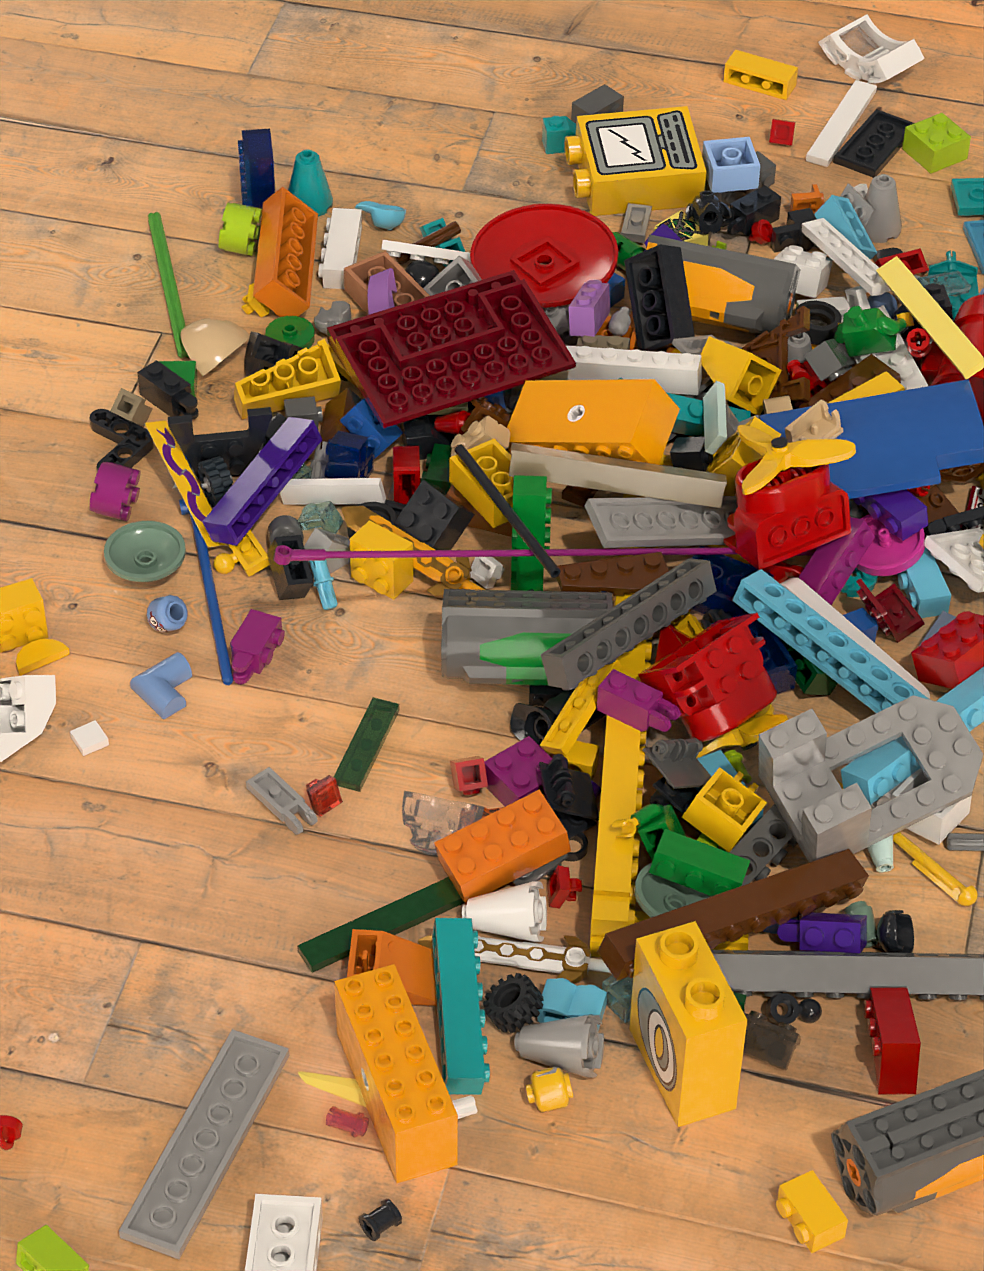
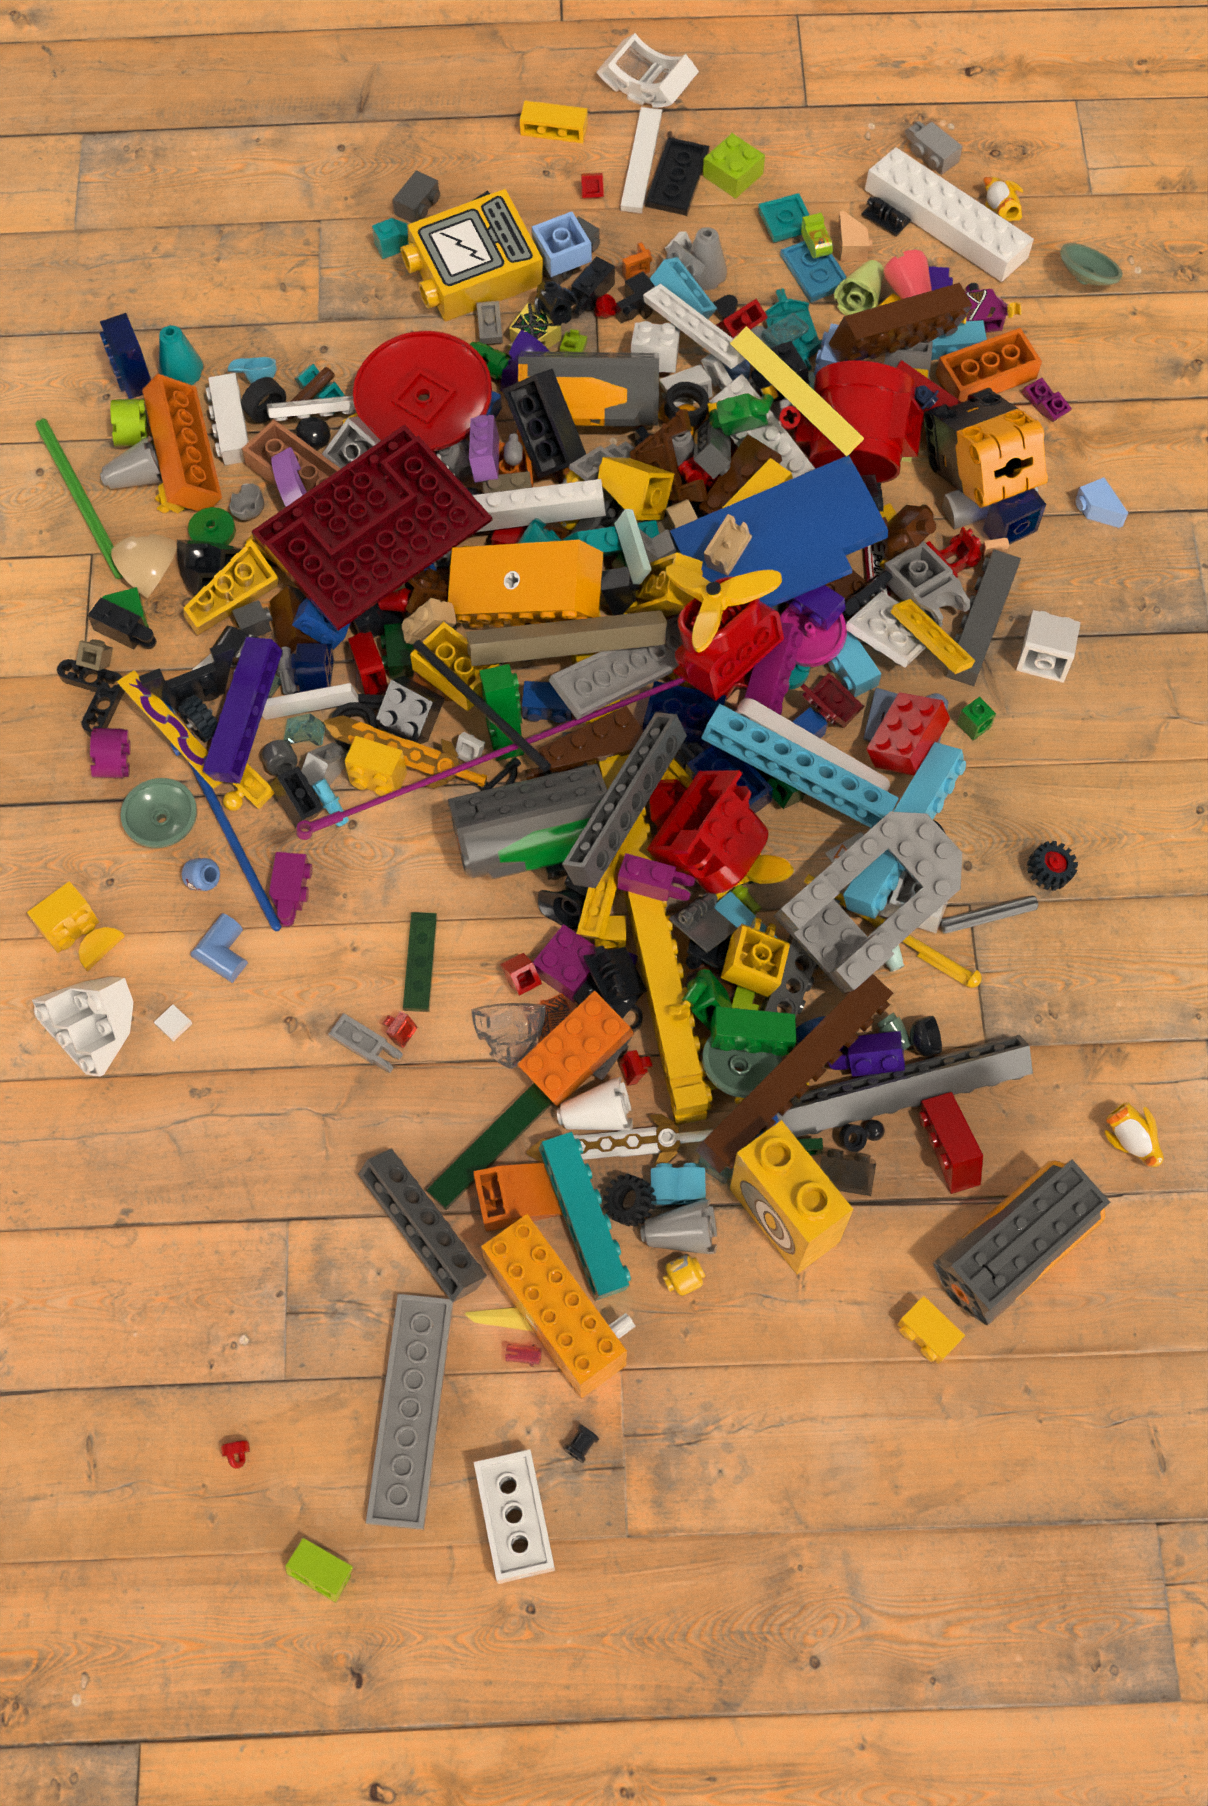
camera: 15 degrees left, 20 degrees up
(230, 266) = (133, 467): none -> light grey cone
(281, 972) = (422, 1225): none -> dark grey brick
(376, 224) = (255, 394): none -> black tyre
(577, 537) = (543, 703): none -> blue brick

